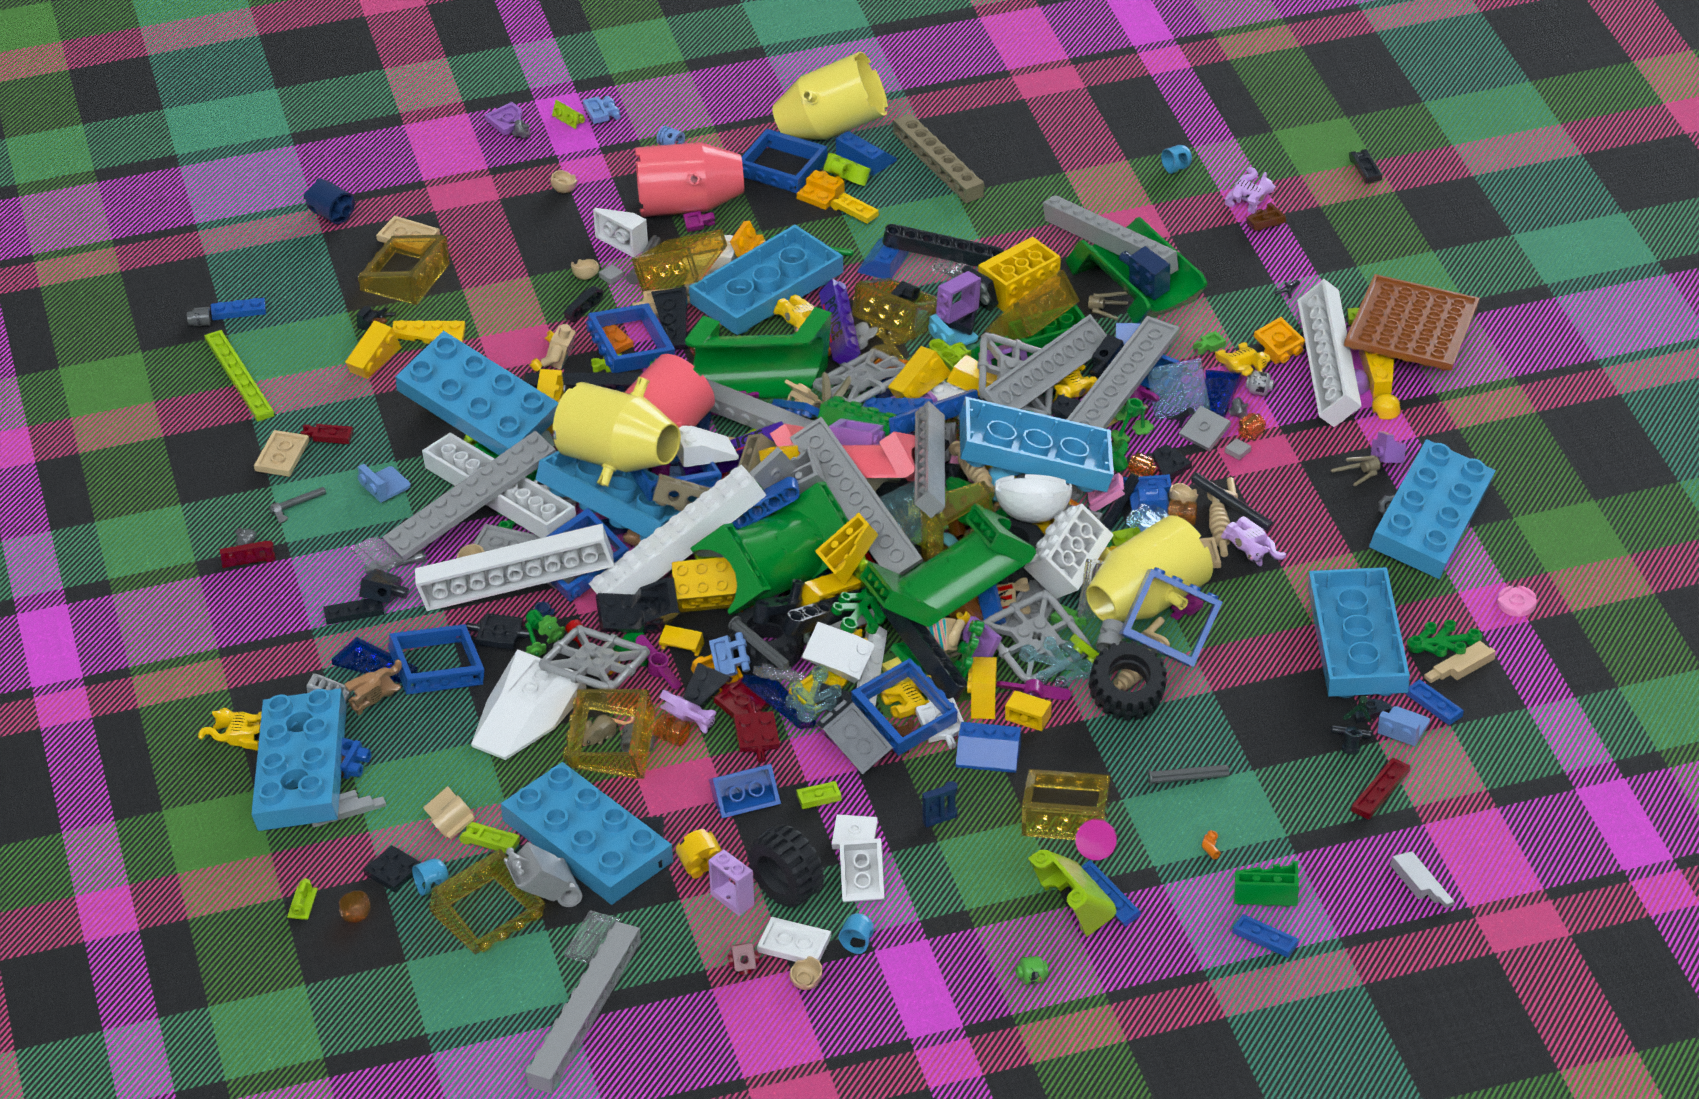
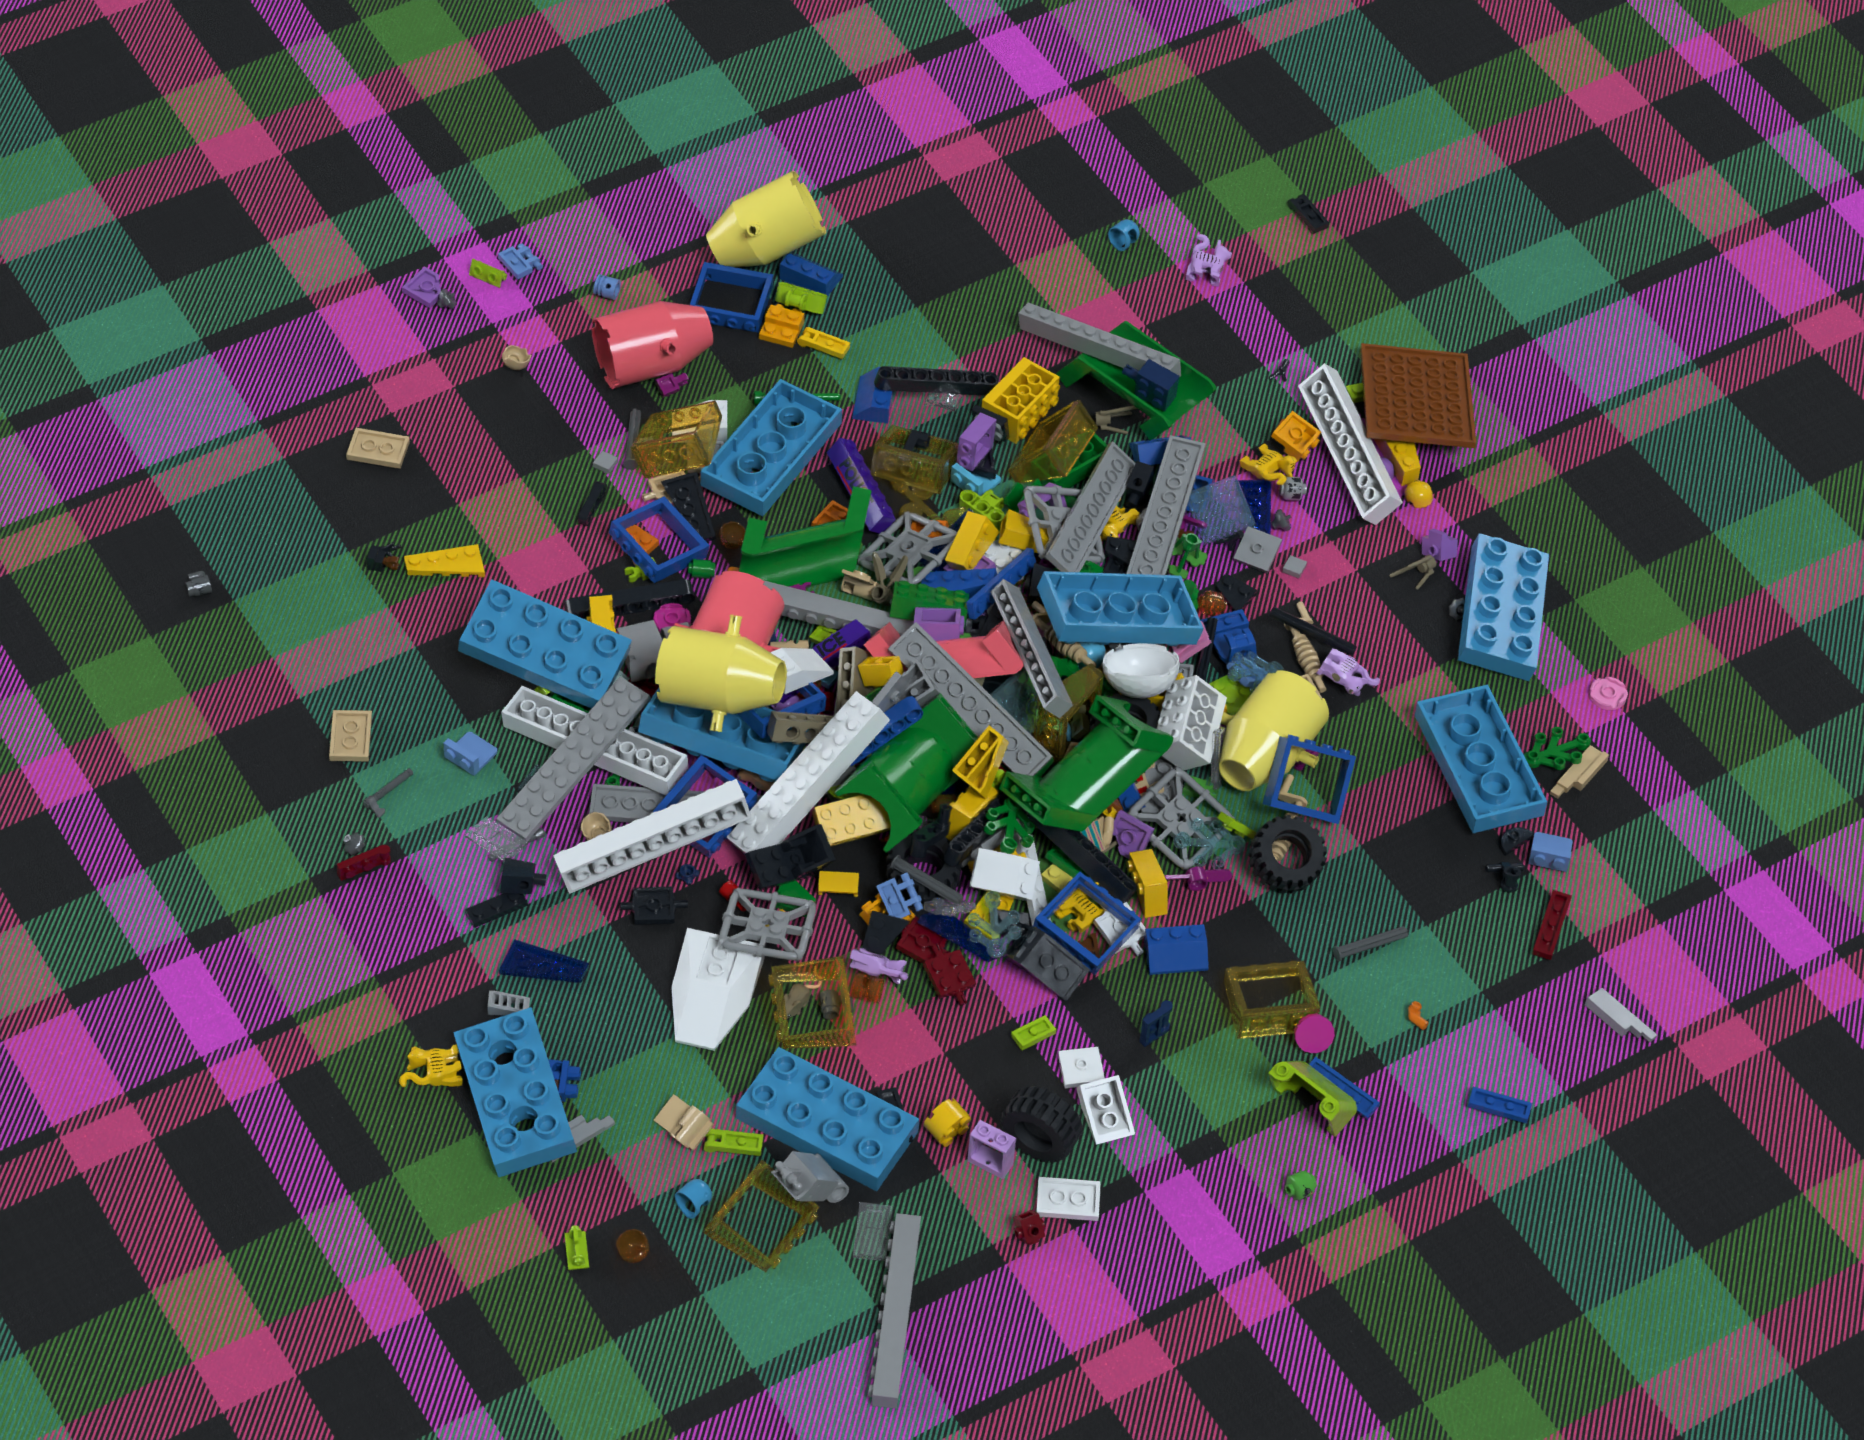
camera: 20 degrees left, 10 degrees up
(238, 308) = (234, 567): blue plate -> none
(239, 375) = (267, 648): lime tile -> none
(328, 433) = (389, 703): dark red plate -> none
(329, 201) = (283, 422): dark blue cylinder -> none
(372, 687) = (557, 997): medium nougat animal -> none
(373, 350) = (399, 597): yellow wedge -> none
(391, 868) = (650, 1194): black plate -> none
(407, 285) = (399, 513): clear yellow windscreen -> none
(437, 679) = (614, 976): blue window -> none
(544, 625) = (710, 898): bright green plant -> none
(559, 349) = (589, 564): tan torso -> none
(585, 269) = (578, 461): tan hair -> none
(621, 230) = (601, 410): white slope -> none
(661, 658) = (827, 908): magenta piece -> none
(745, 239) = (737, 406): light orange plate -> none
(745, 791) = (961, 1041): blue slope -> none
(794, 311) = (816, 482): yellow animal -> none
(798, 408) = (864, 599): blue plate -> none
(806, 973) = (1094, 1231): tan hair -> none
(858, 927) = (1126, 1171): dark azure helmet -> none
(864, 333) = (890, 493): light grey plate -> none
(938, 158) = (887, 269): dark tan brick -> none
(967, 649) = (1130, 847): green plant -> none
(1028, 710) = (1199, 901): yellow brick -> none
(1109, 634) = (1251, 808): light grey wheel -> none
(1182, 492) = (1263, 630): tan hair -> none
(1185, 511) = (1270, 651): clear orange wheel -> none
(1211, 342) = (1228, 446): bright green plate -> none
(1251, 426) = (1301, 539): clear orange head -> none
(1266, 218) = (1233, 290): reddish brown wing -> none
(1267, 886) = (1487, 1053): green wedge -> none
(1361, 706) = (1509, 841): clear green plant -> none
(1434, 702) = (1571, 821): blue plate -> none

